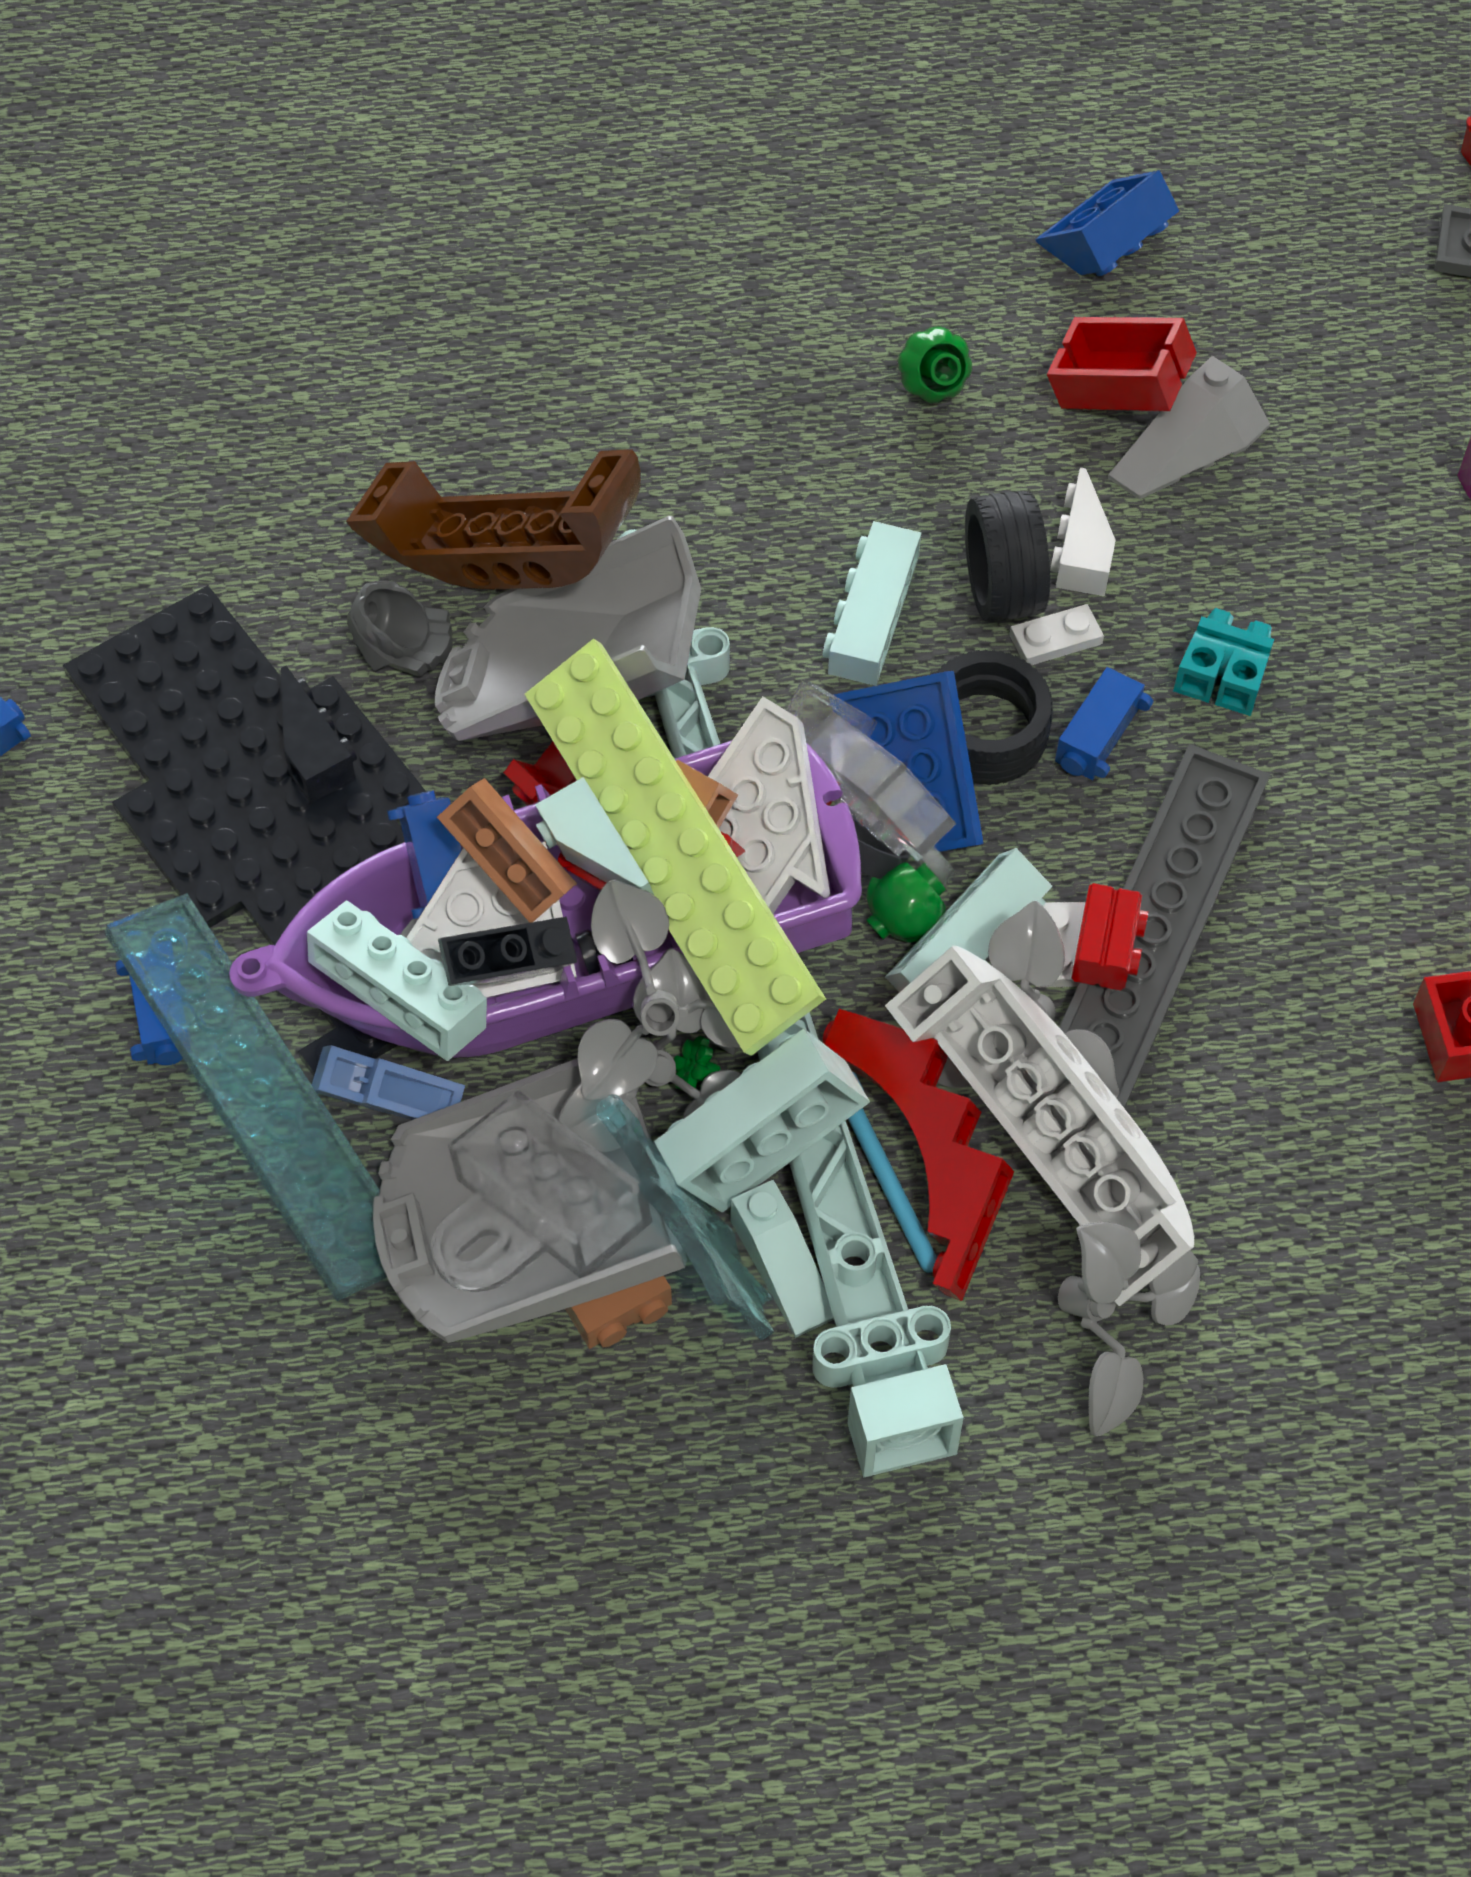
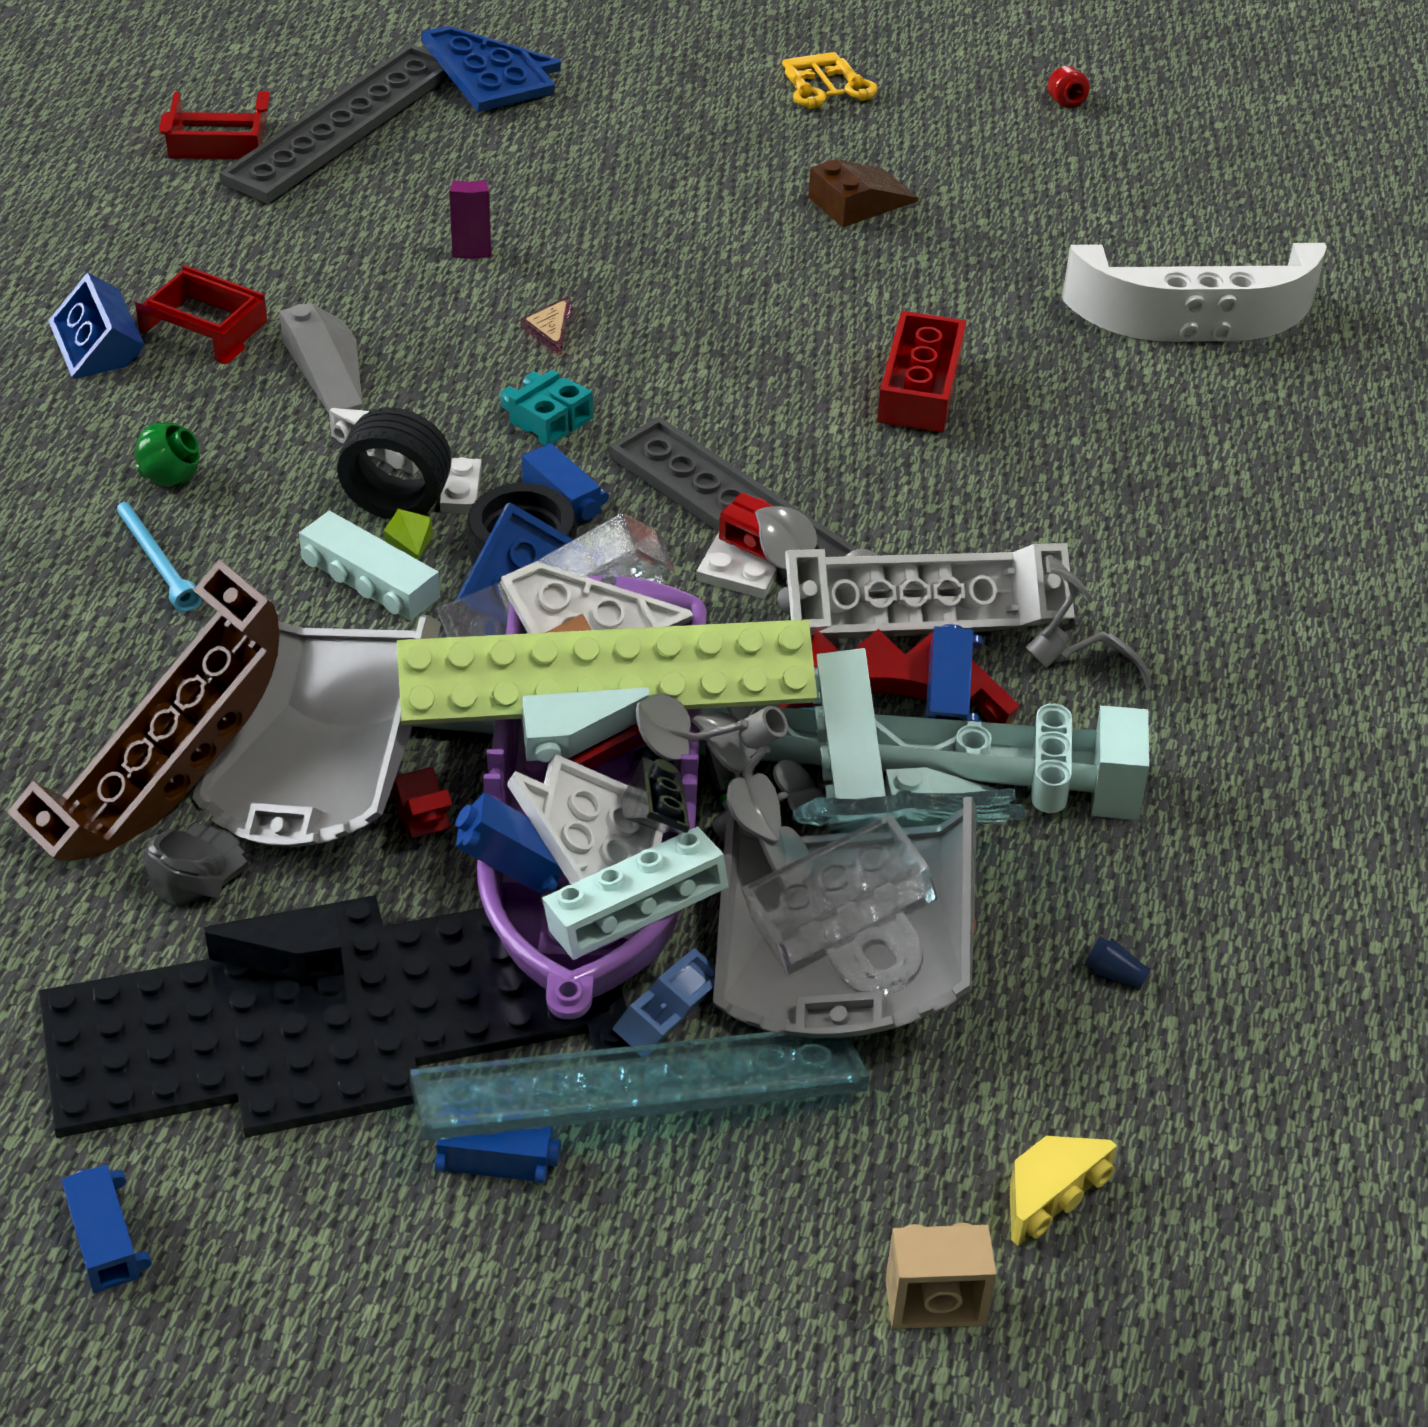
camera: 70 degrees left, 15 degrees down
(117, 1426) = (940, 1276): none -> tan brick
(285, 1507) = (1054, 1179): none -> light yellow slope
(506, 850) = (566, 763): nougat brick -> none
(615, 1500) = (1116, 964): none -> dark blue cone
(756, 469) = (181, 590): none -> medium azure piece
(930, 1196) = (951, 673): none -> blue brick
(945, 618) = (409, 532): none -> lime slope
(972, 919) = (704, 576): light aqua brick -> none
(1122, 363) = (252, 353): red piece -> none
(1208, 337) = (245, 304): none -> red piece
(1388, 612) = (549, 324): none -> tile

